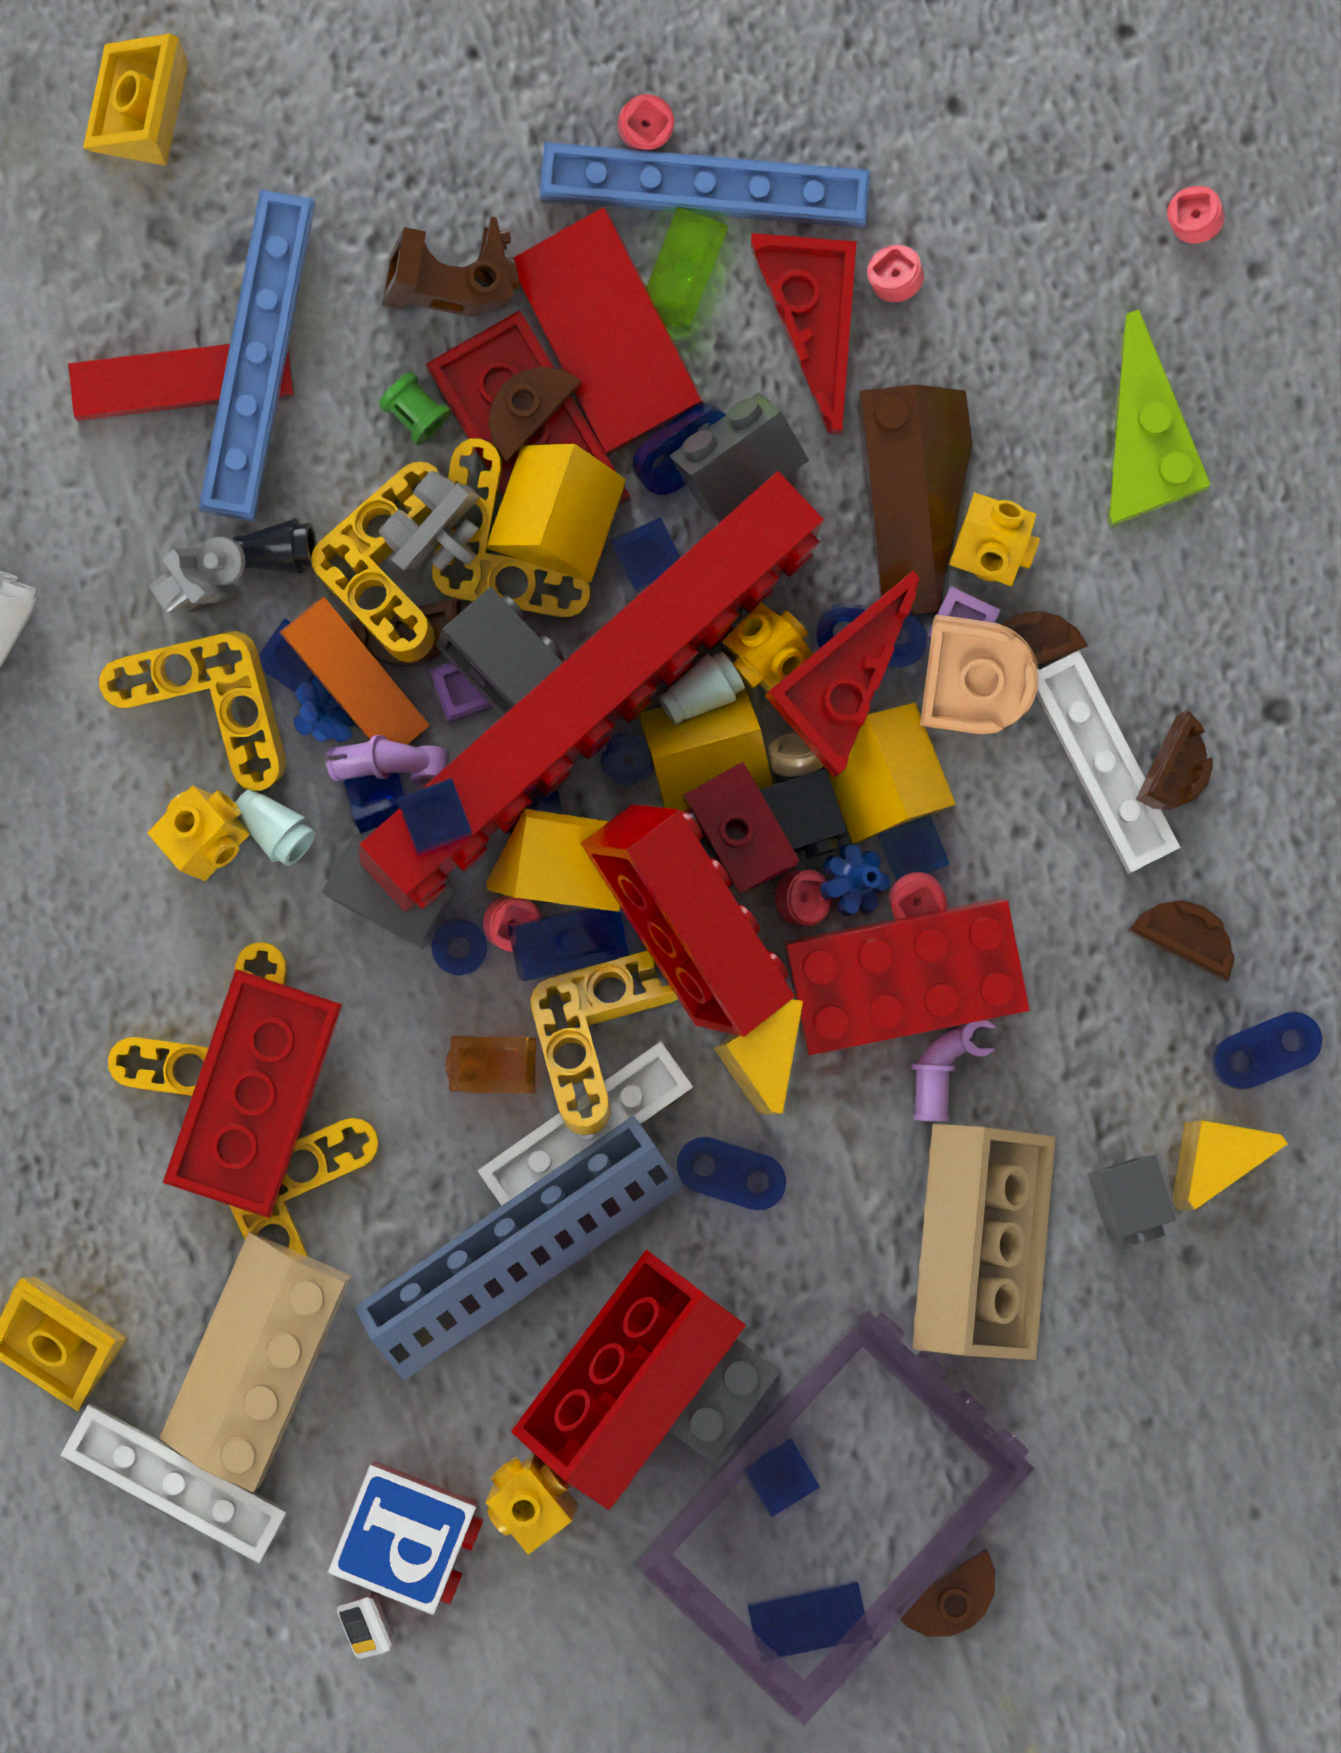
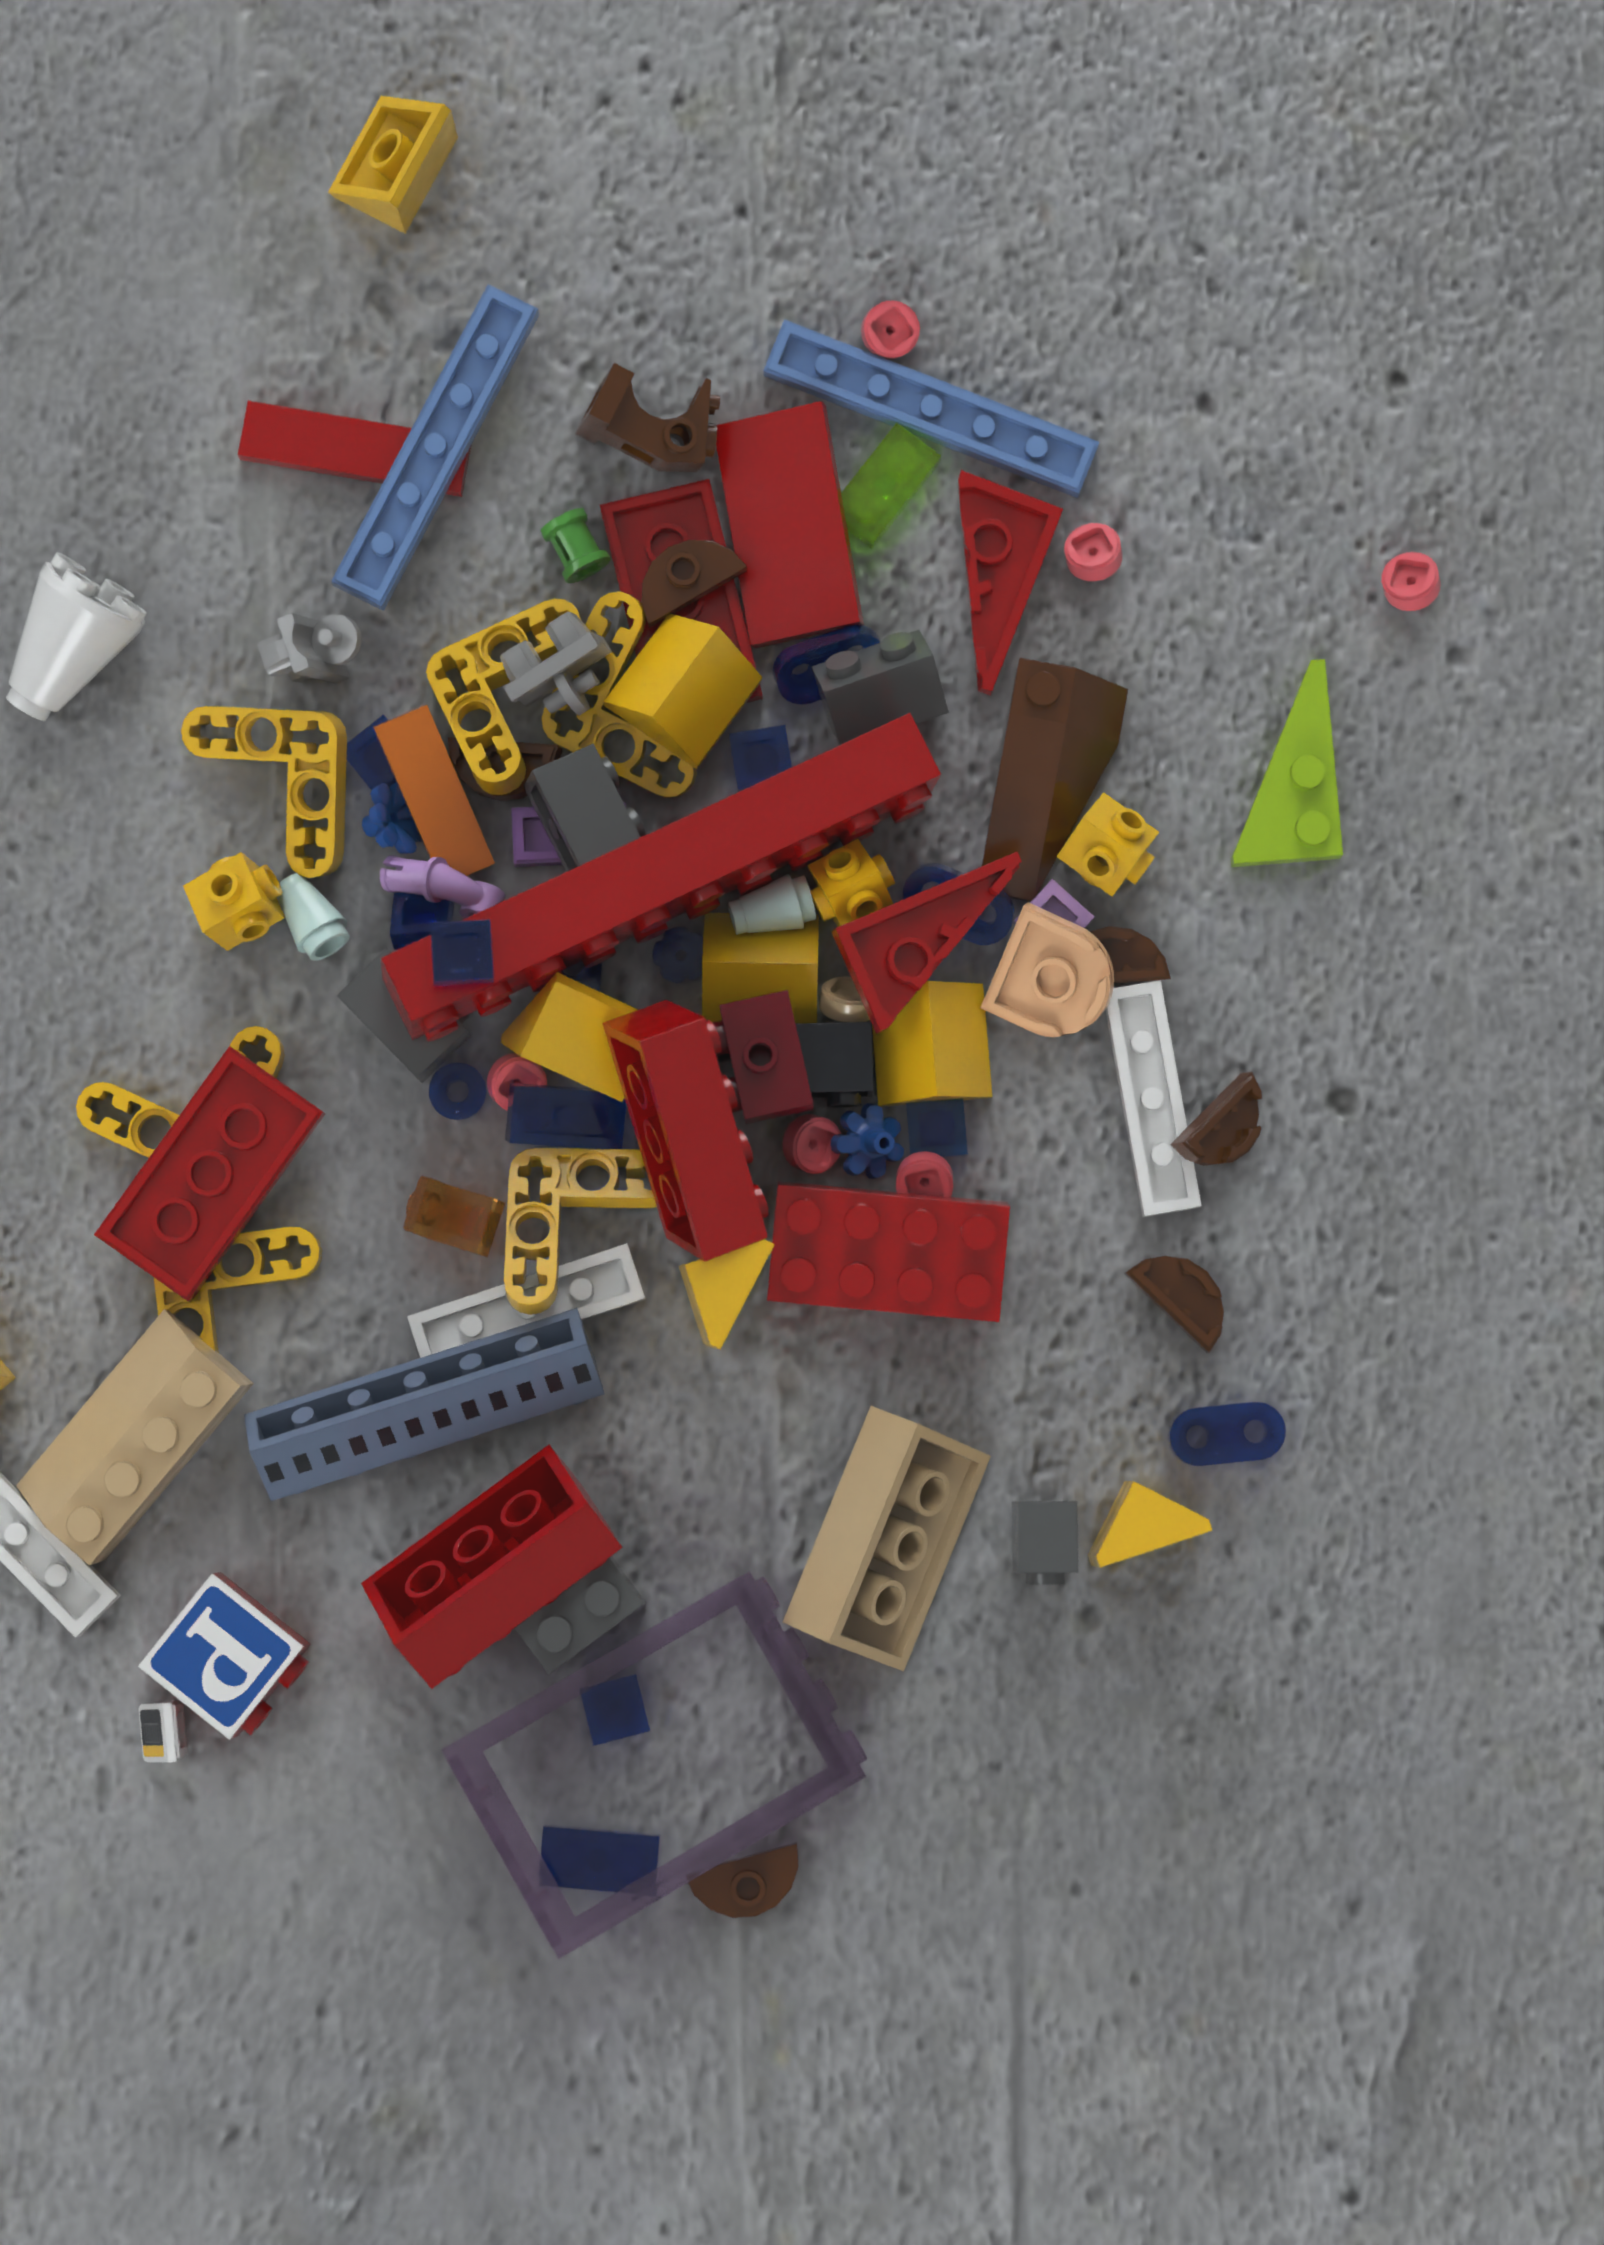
camera: 20 degrees right, 0 degrees up
(279, 547) = (400, 643): black cone -> none
(529, 1502) = (358, 1658): yellow brick -> none
(731, 1172) = (657, 1395): clear blue plate -> none
(935, 1068) = (890, 1352): lavender piece -> none

